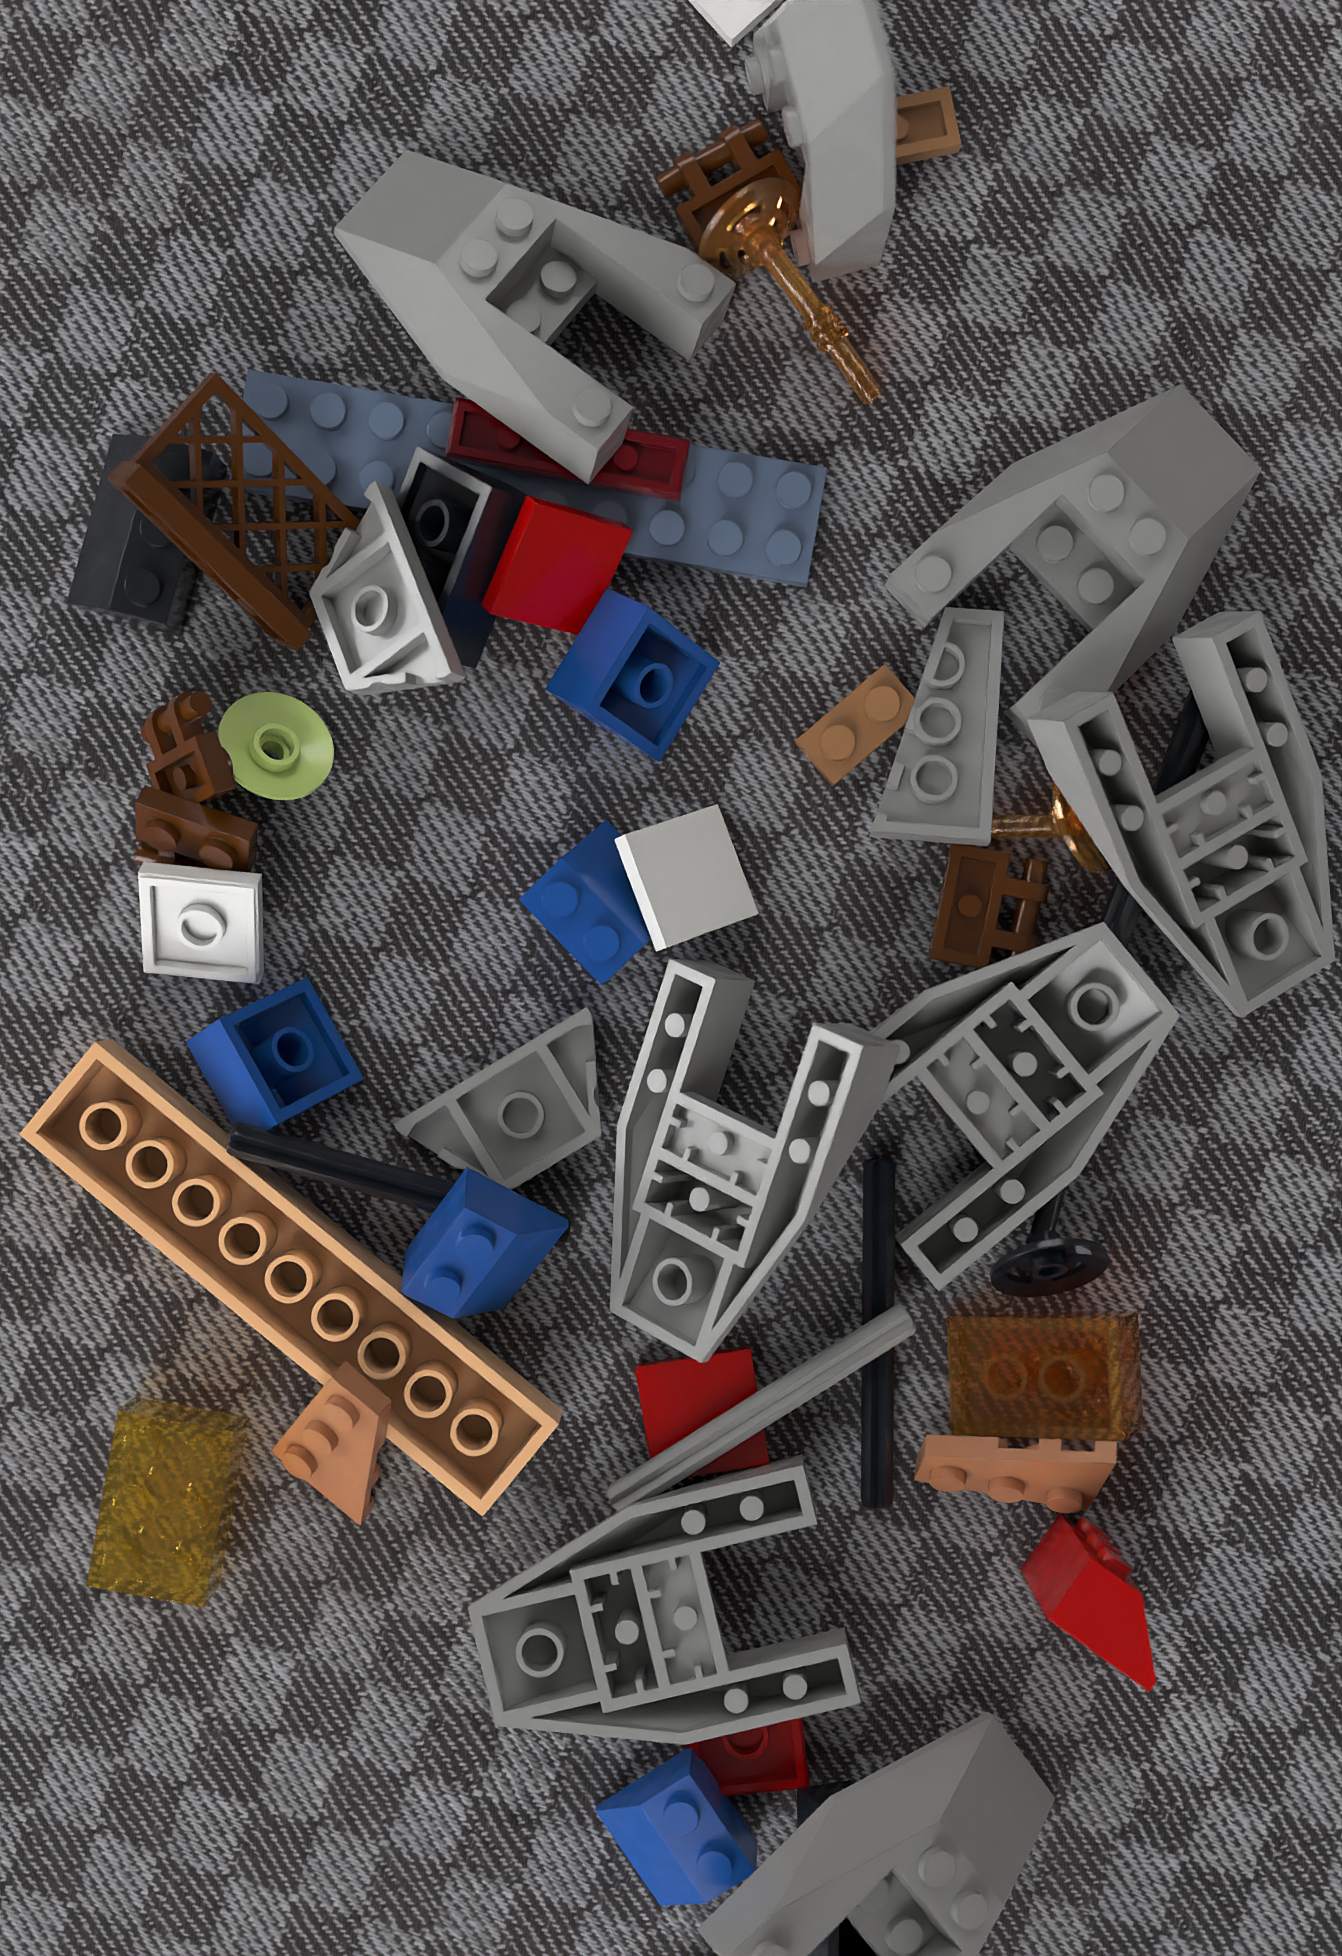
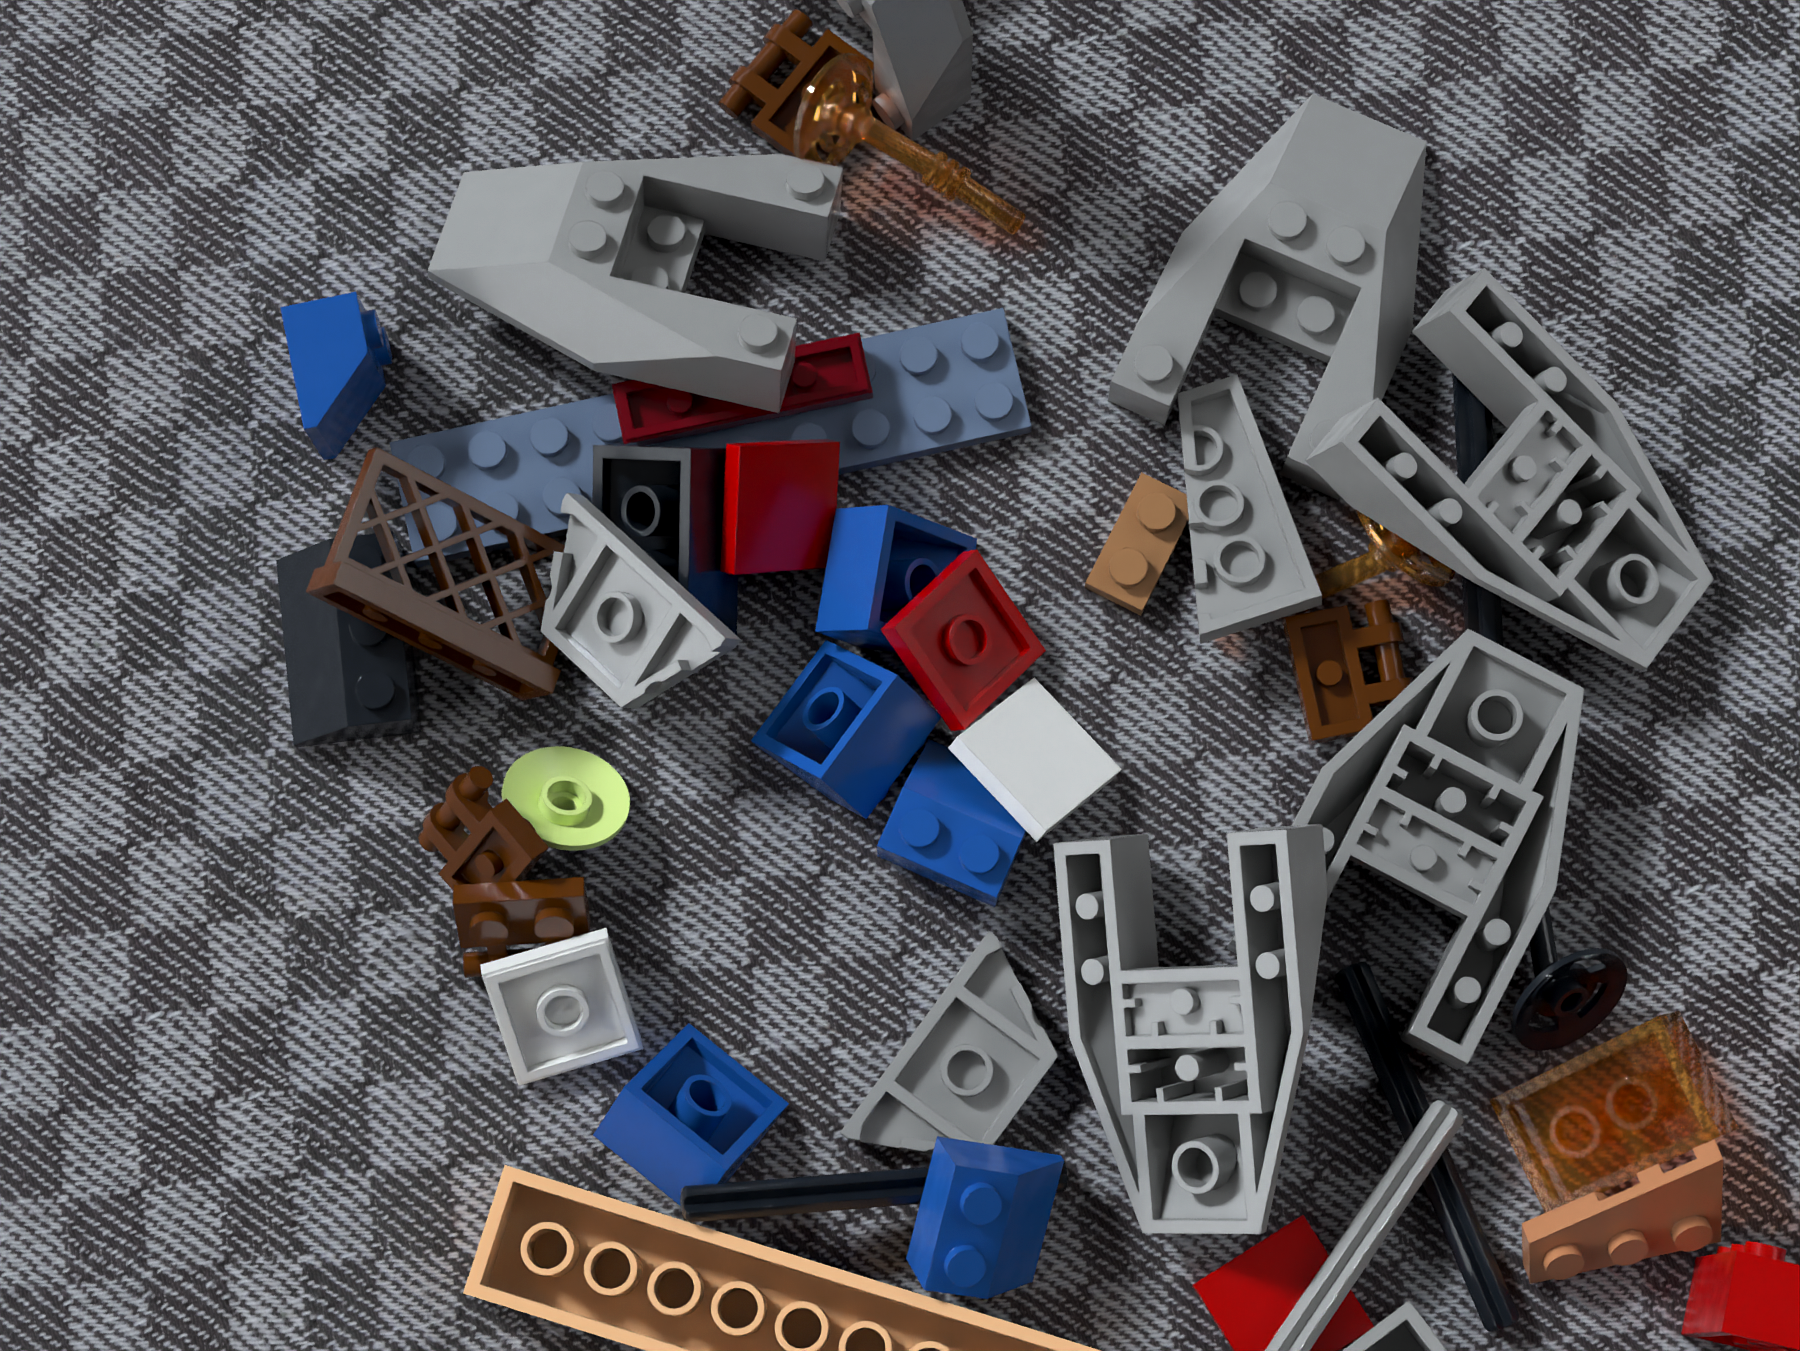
camera: 20 degrees left, 10 degrees down
(219, 283) = (335, 366): none -> blue slope
(538, 783) = (847, 728): none -> blue slope
(667, 749) = (963, 640): none -> red plate

